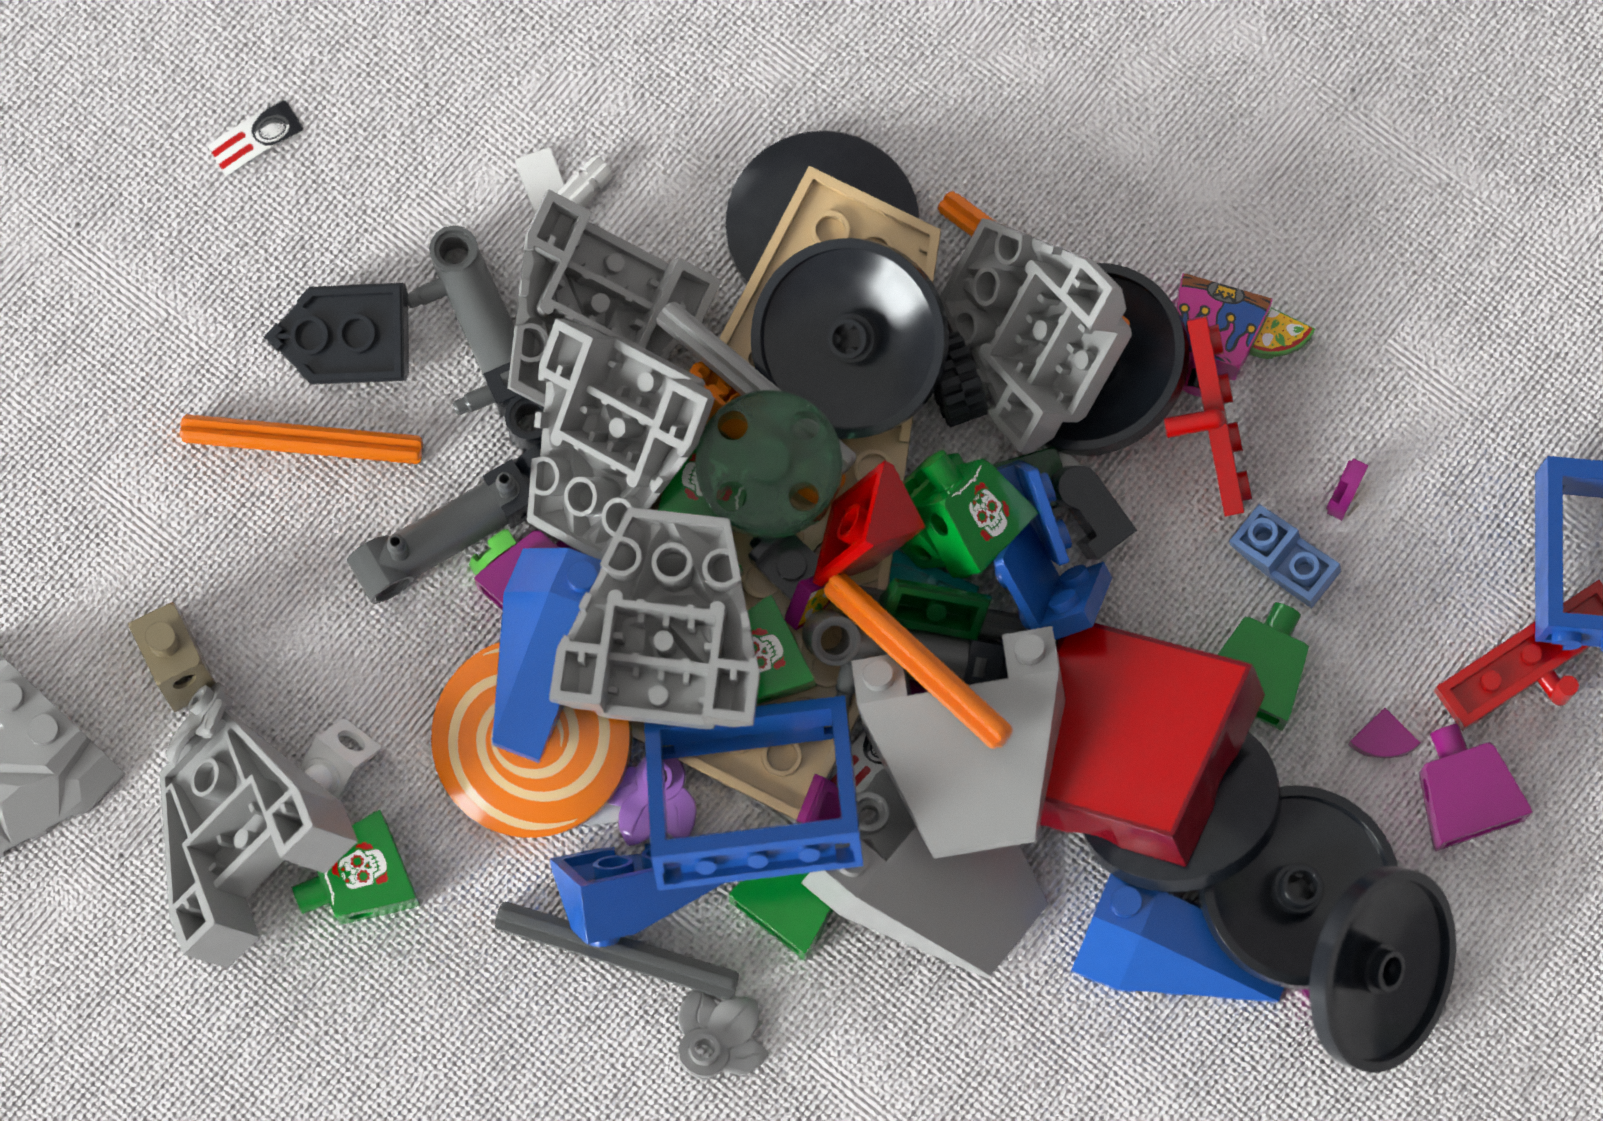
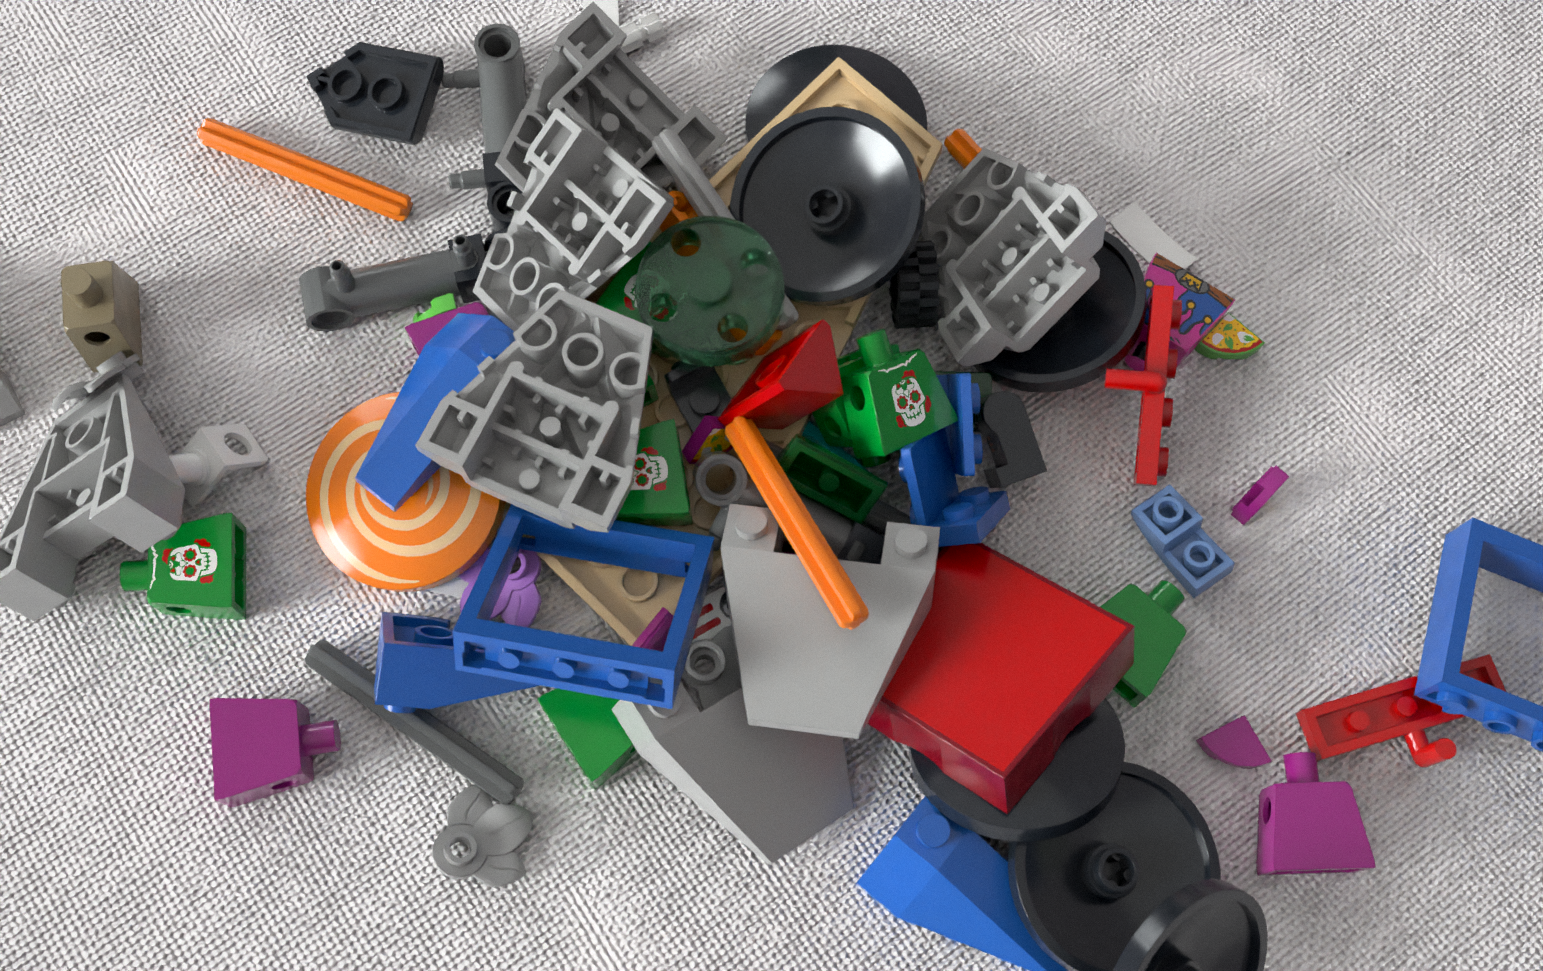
camera: 10 degrees right, 5 degrees down
(492, 1014) = (264, 747): none -> magenta torso
(1176, 249) = (1148, 237): none -> white sticker

